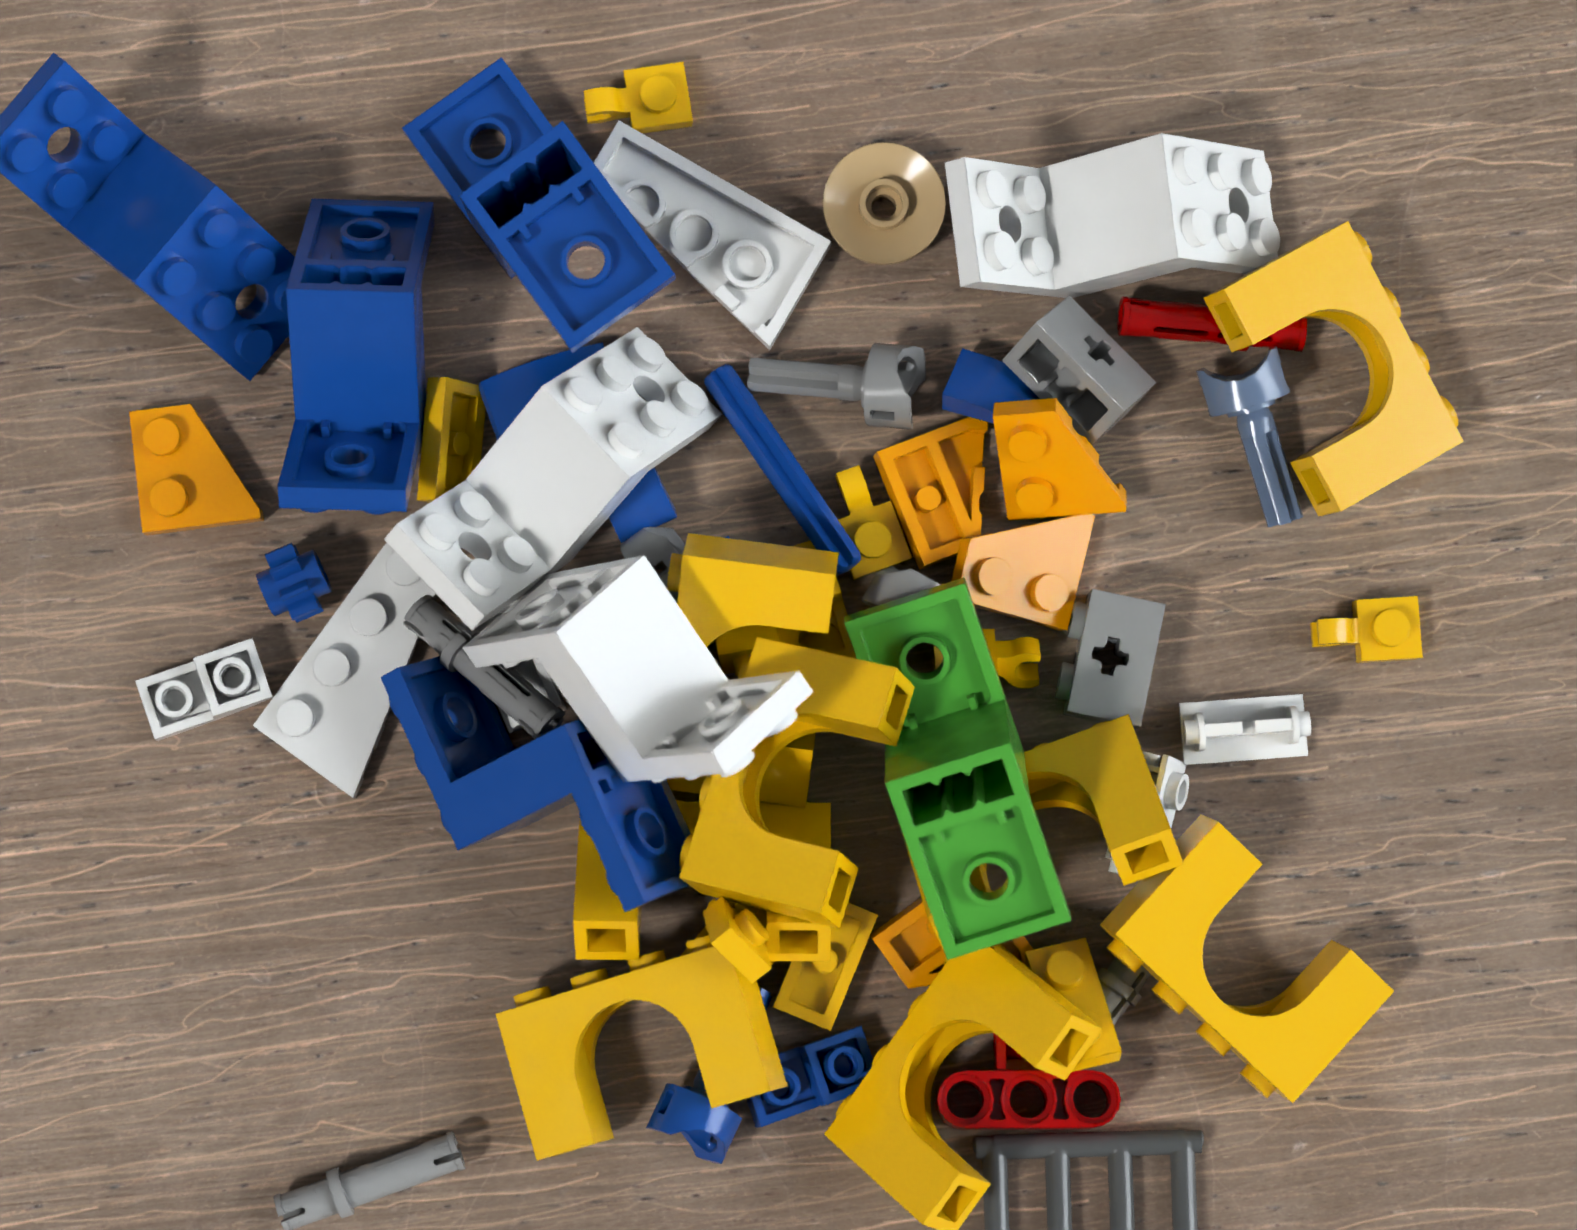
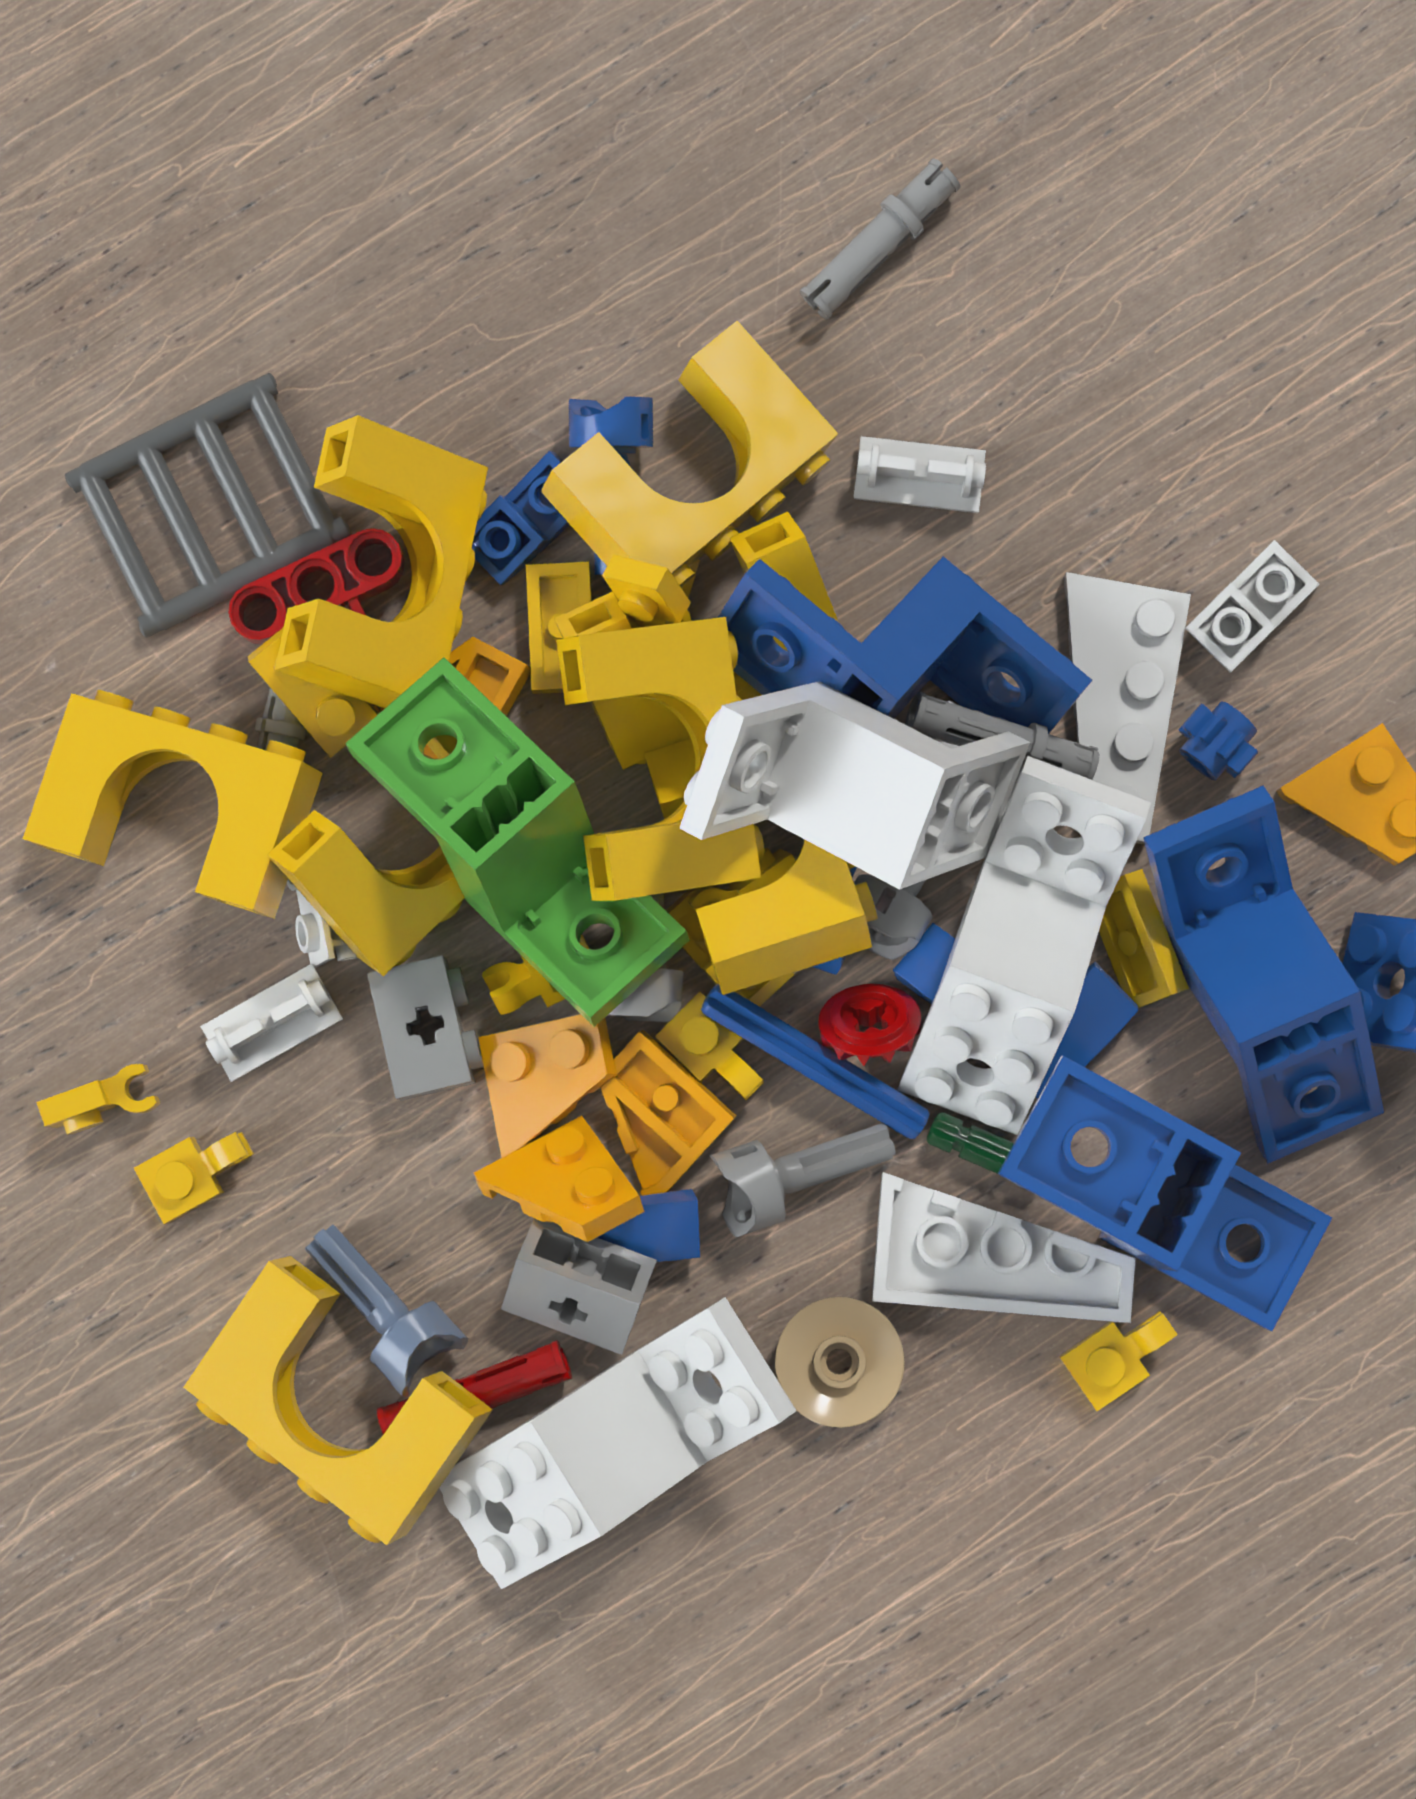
camera: 155 degrees right, 0 degrees up
(438, 948) = (920, 474): none -> white hinge
(677, 335) = (972, 1143): none -> dark green axle
(715, 499) = (866, 1006): none -> red gear
(1443, 731) = (82, 1106): none -> yellow plate

